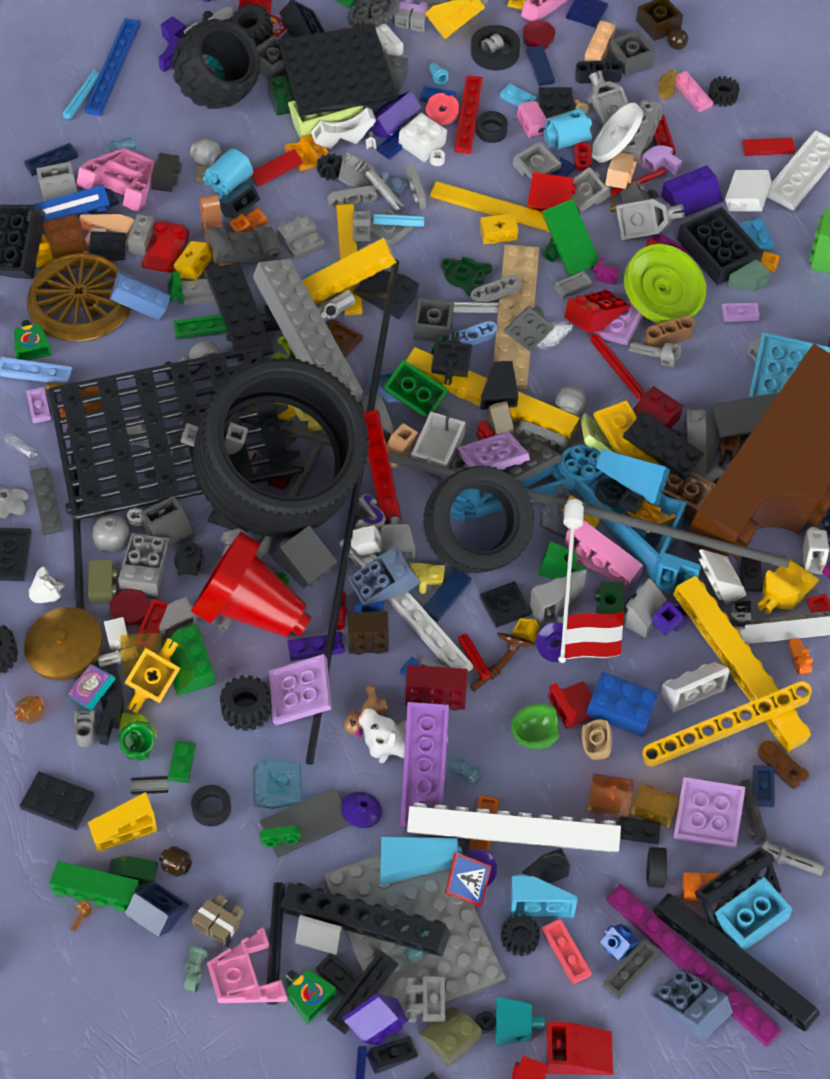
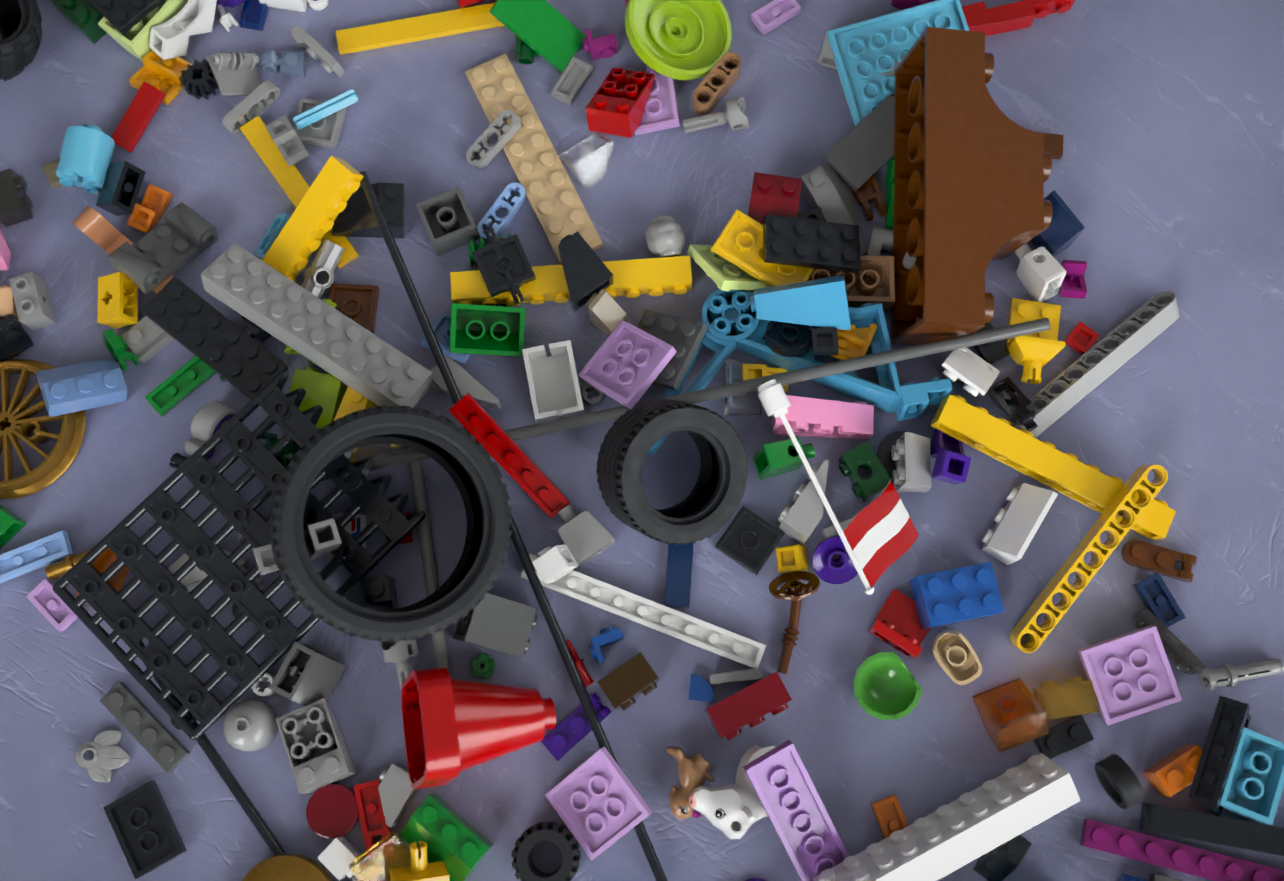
camera: 25 degrees left, 20 degrees up
(20, 446) = (67, 673): clear axle -> none
(44, 587) = (218, 852): white brick -> none
(101, 581) = (279, 798): olive brick -> none
(165, 246) = (72, 299): red slope -> none
(189, 559) = (363, 705): black hand -> none
(205, 151) = (40, 143): light grey hair -> none
(300, 237) = (224, 194): light grey plate -> none
(369, 513) = (536, 521): light grey animal -> none
(381, 186) = (284, 77): light grey pin -> none
(384, 577) = (604, 601): sand blue slope -> none
(402, 442) = (511, 406): light nougat slope -> none
(428, 574) = (638, 558): light yellow plate -> none
(465, 273) = (442, 134): dark green tile -> none
(465, 770) = (833, 782): clear light blue arm -> none
(474, 656) = (760, 633): red axle -> none
(476, 307) = (476, 176): light grey axle -> none
(483, 431) = (594, 335): red plate -> none
(498, 228) = (446, 55): yellow brick -> none
(529, 327) = (567, 172): dark grey bracket -> none
(551, 439) = (659, 301): light grey beam -> none
(617, 366) = (686, 160): red axle -> none
(800, 656) = (1095, 412): orange bar -> none

